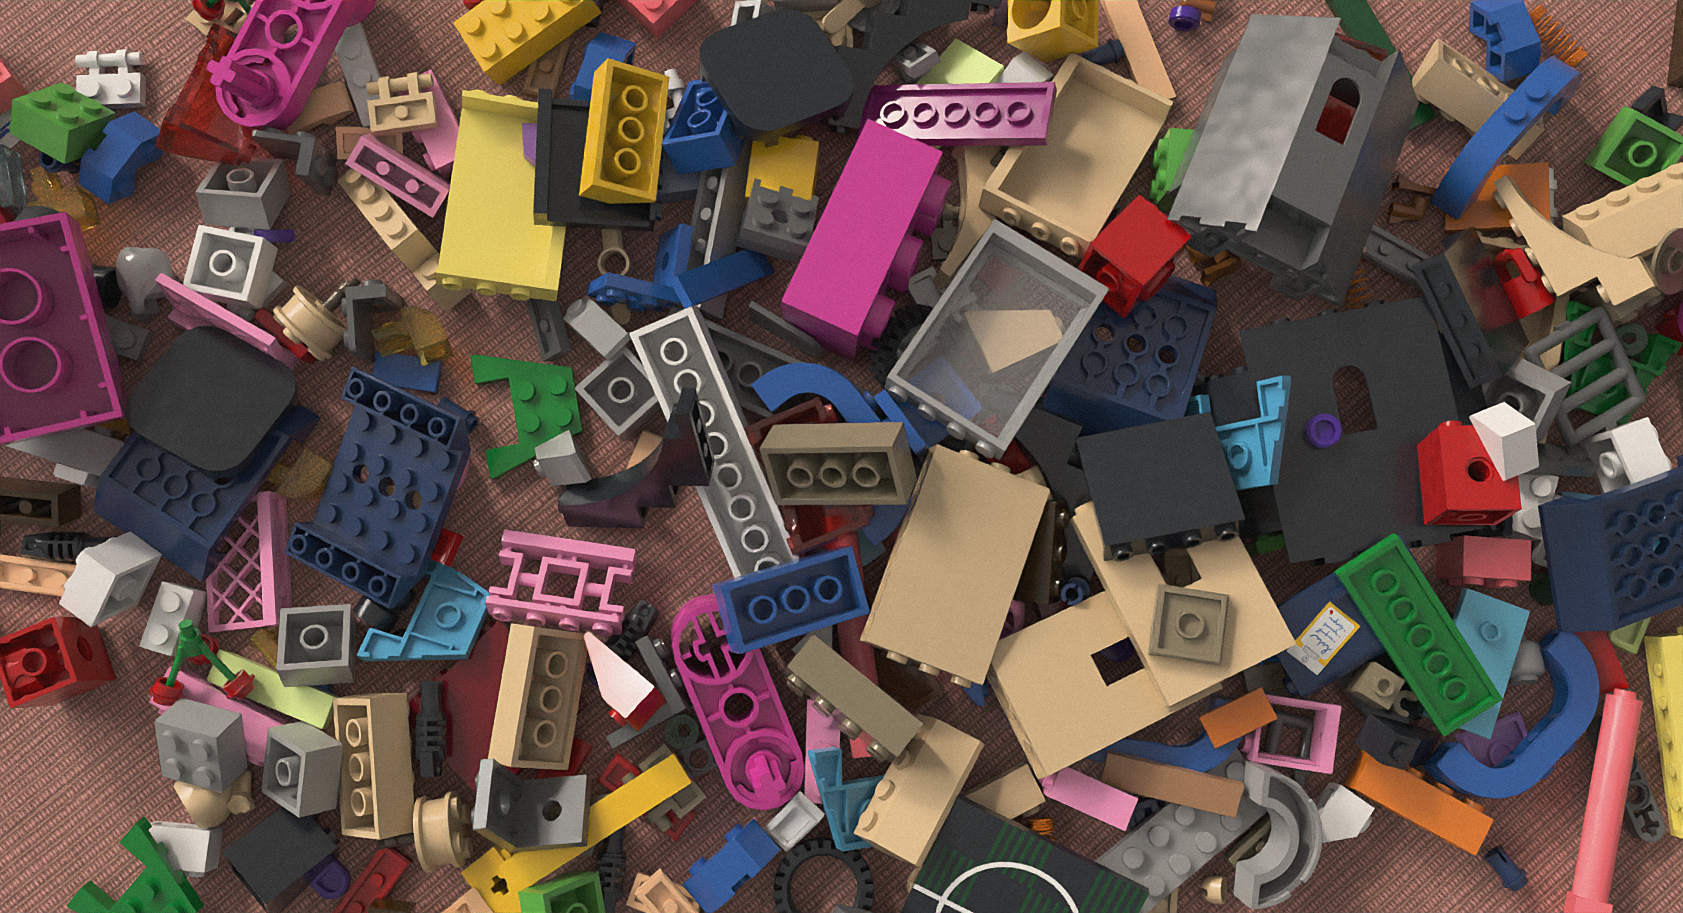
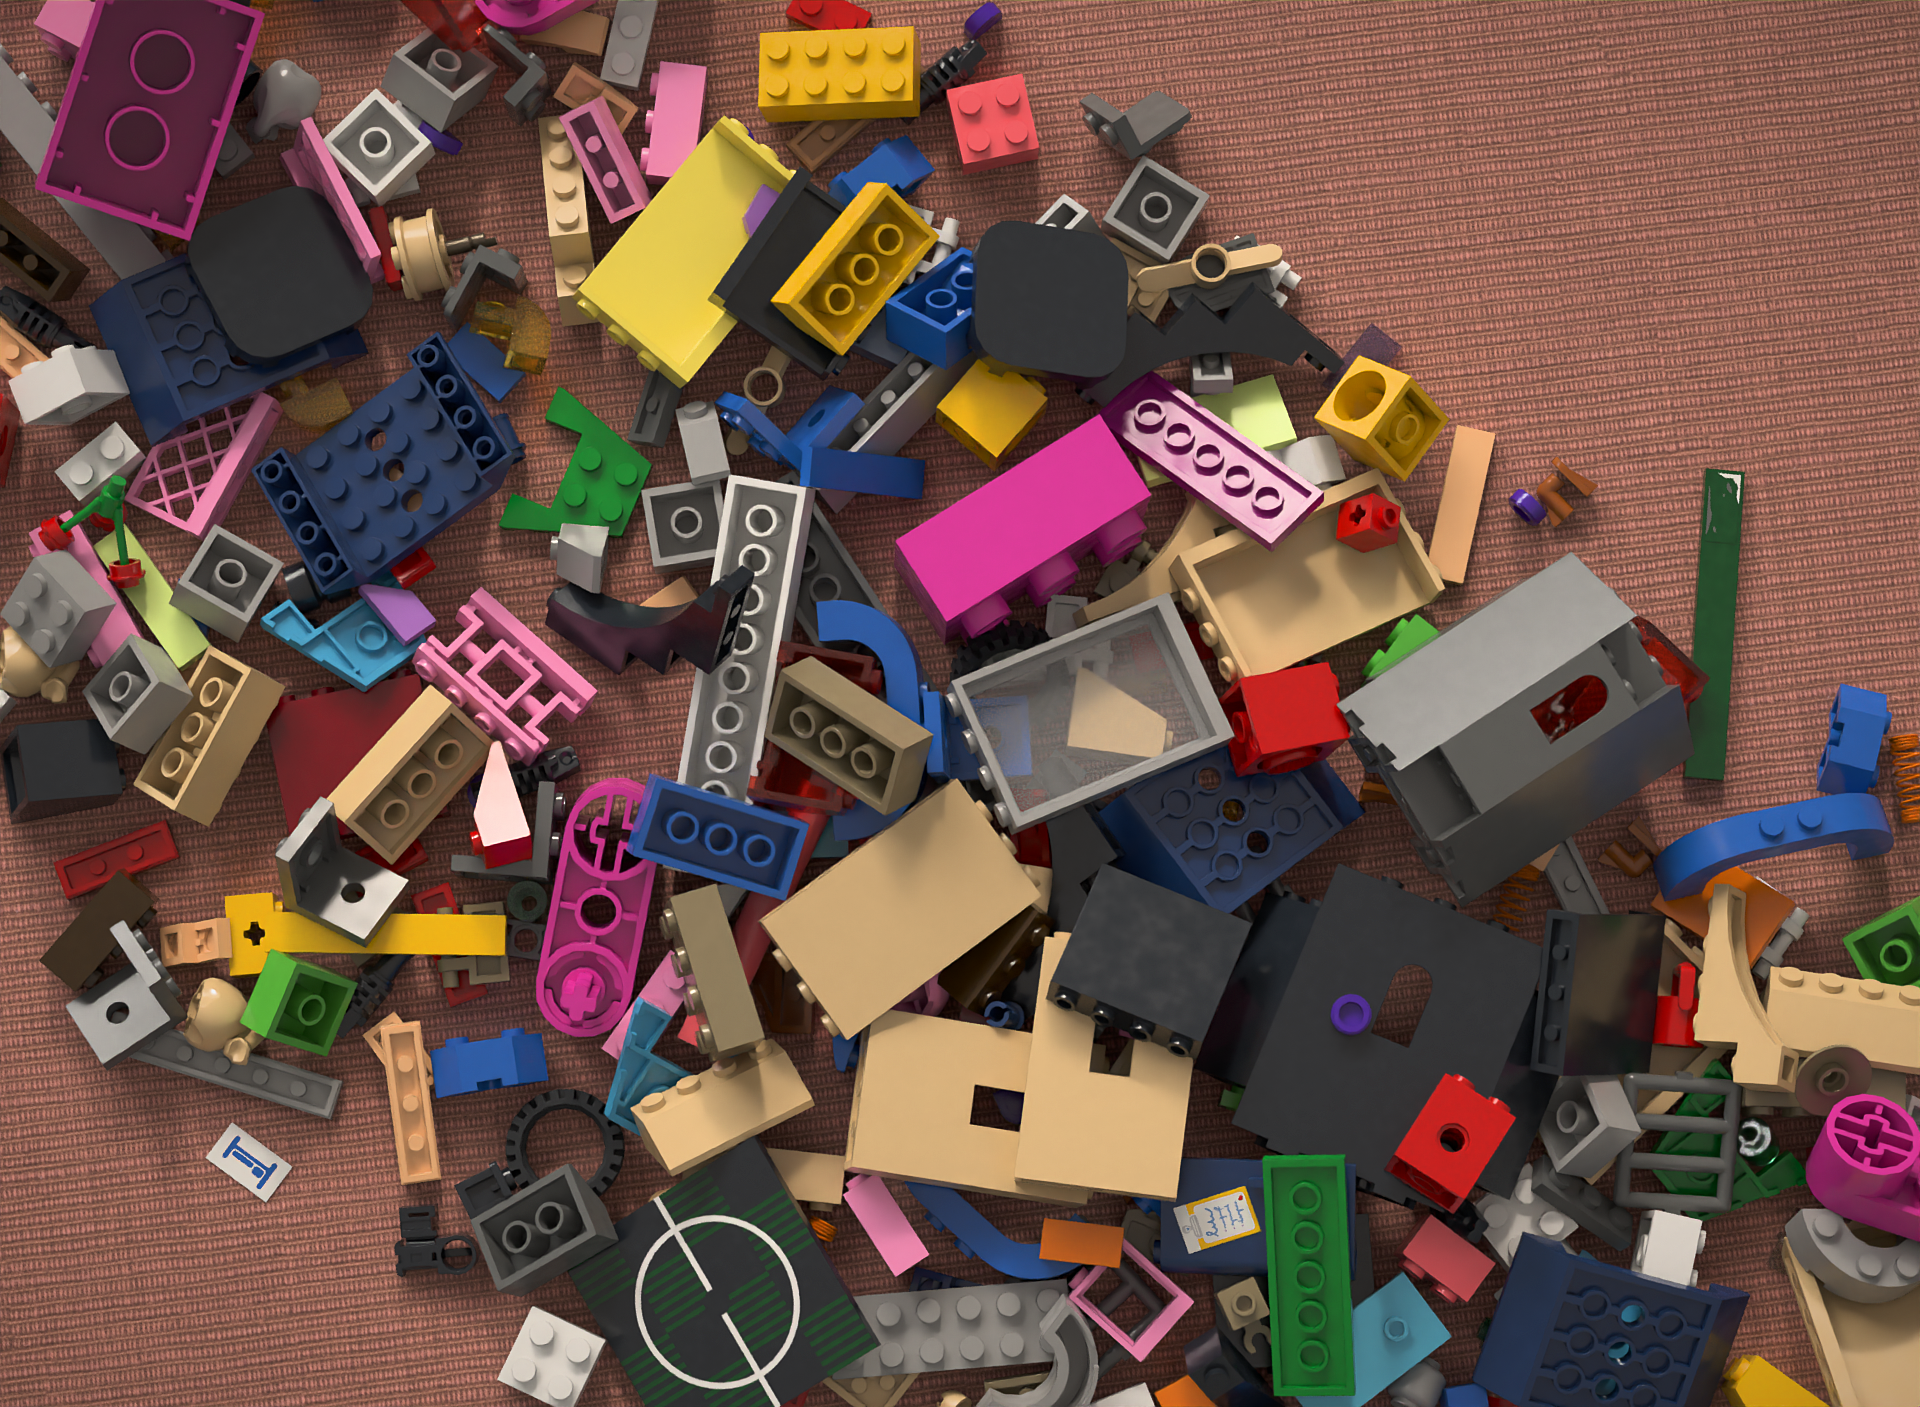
camera: 30 degrees right, 0 degrees up
(76, 475) = (94, 259): white tile -> none
(267, 644) = (174, 553): clear yellow pin -> none
(332, 881) = (90, 825): dark purple tile -> none
(405, 112) = (648, 97): tan plate -> none
(431, 730) = (285, 738): black hinge -> none
(437, 832) = (227, 843): tan wheel -> none
(456, 584) = (399, 611): none -> medium lavender tile
(777, 223) = (952, 434): dark grey bracket -> none
(784, 330) = (891, 567): dark grey window -> none
(793, 821) = (578, 1061): white tile -> none
(1092, 90) = (1377, 523): none -> red brick
(1106, 53) = (1417, 491): dark blue pin -> none
(1172, 783) = (974, 1265): medium nougat tile -> none
(1188, 624) = (1084, 1111): dark tan tile -> none
(1256, 444) = (1269, 982): dark azure wing -> none
(1465, 91) = (1768, 770): tan slope -> none
(1508, 439) = (1495, 1126): white slope -> none

